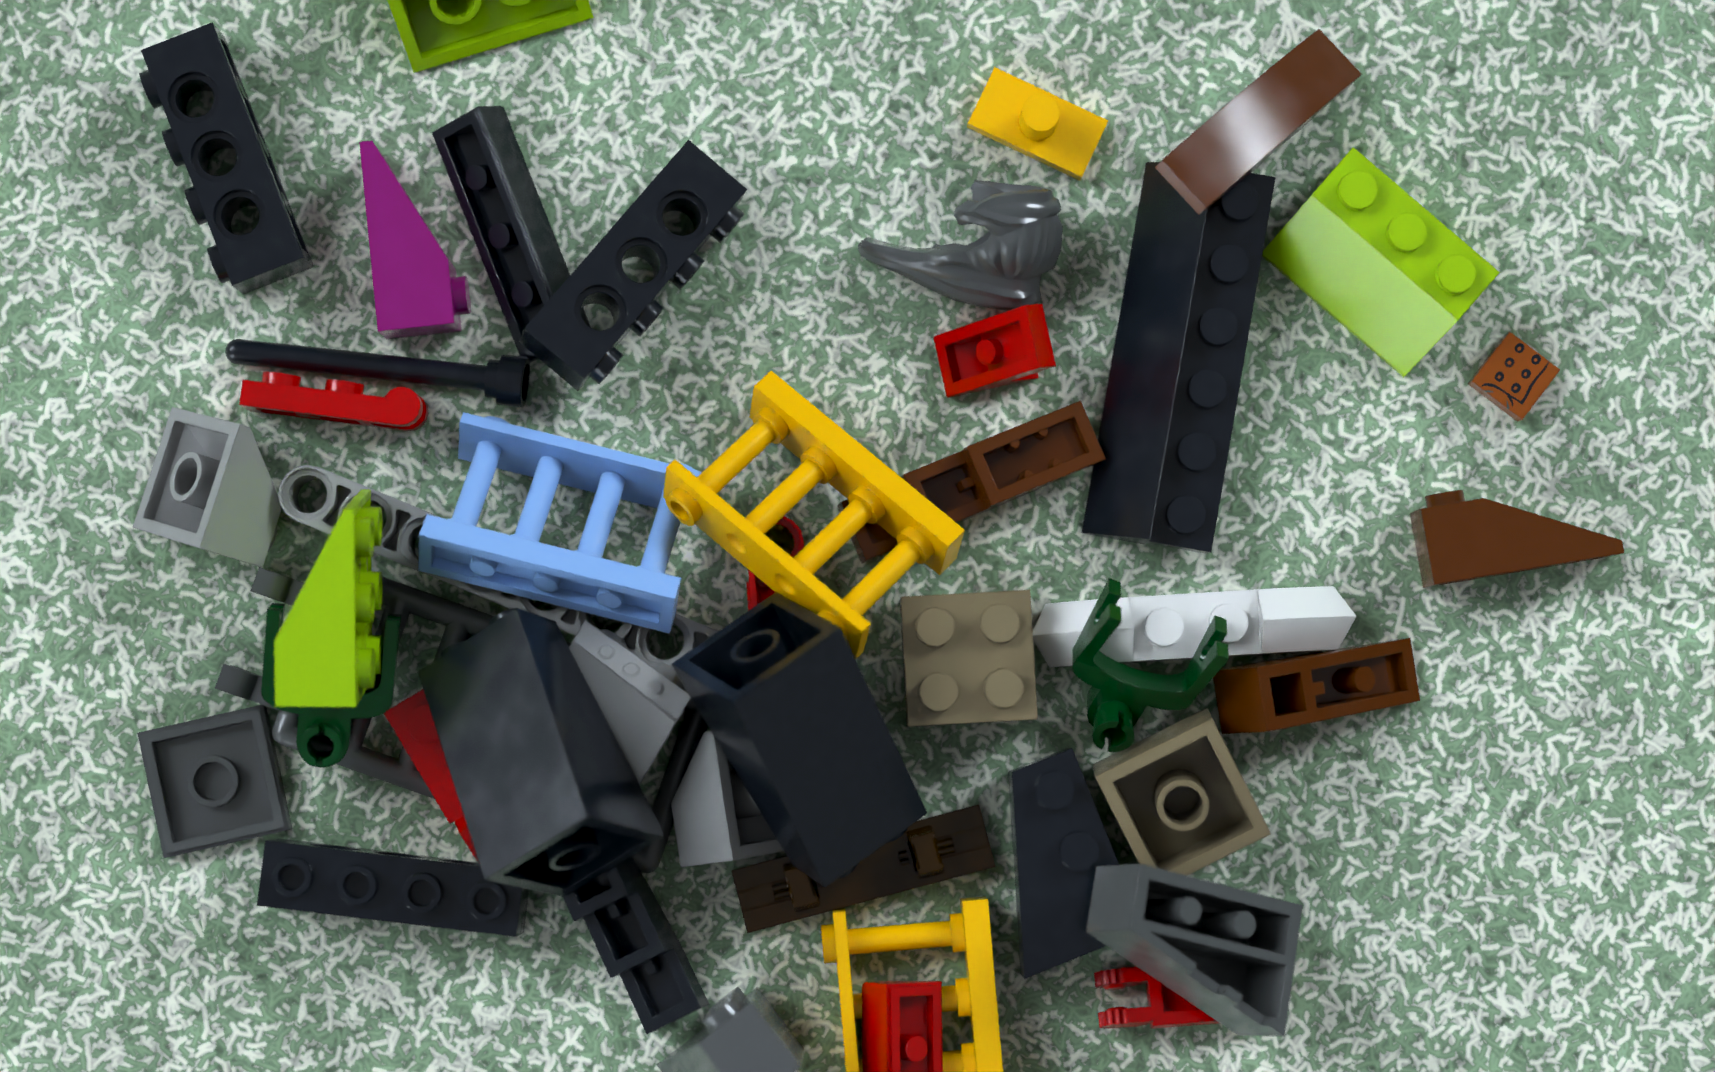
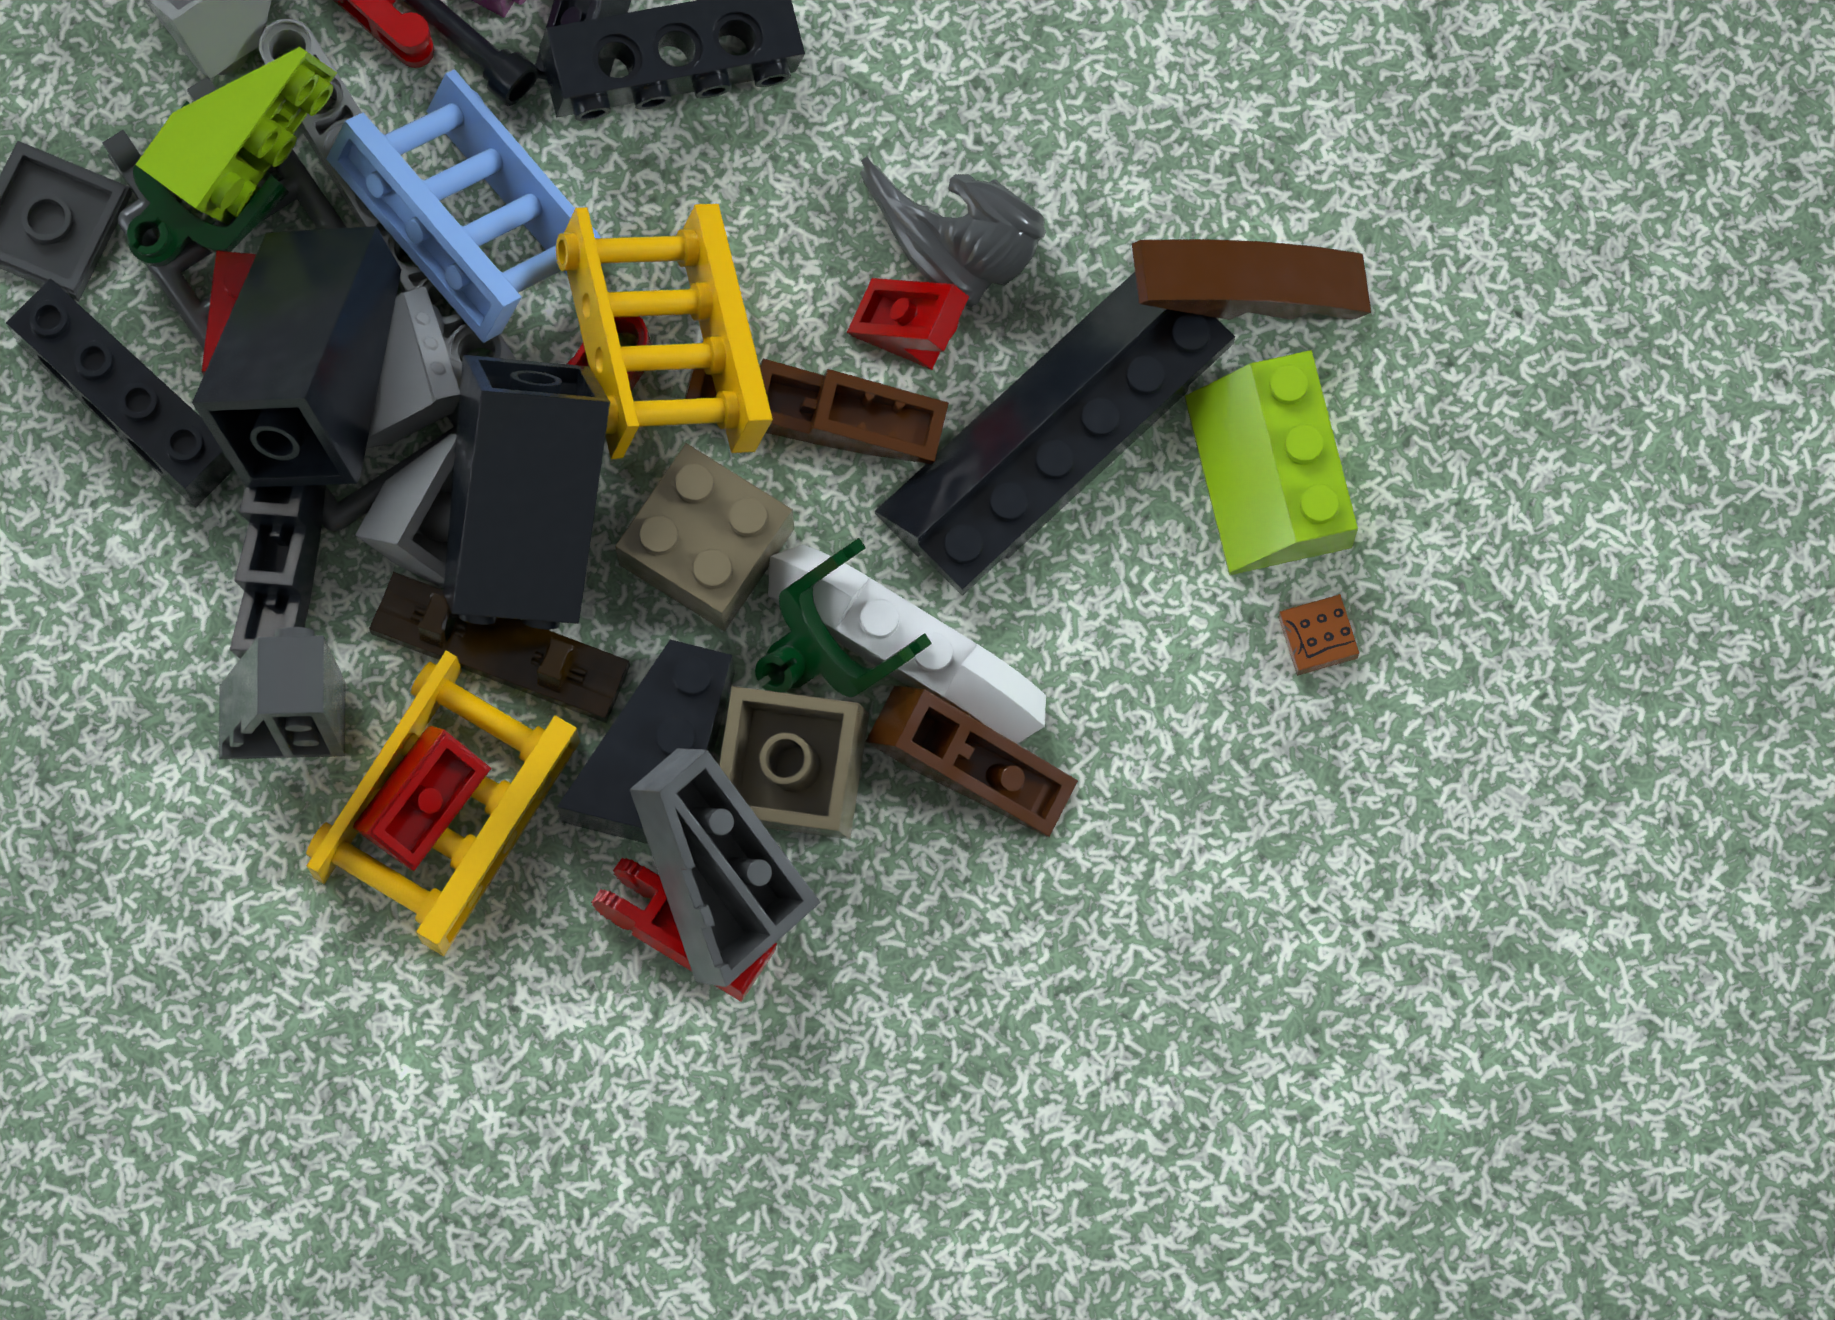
camera: 40 degrees right, 10 degrees down
(1037, 123) = (1079, 172): yellow tile -> none
(1488, 539) = (1198, 744): reddish brown slope -> none

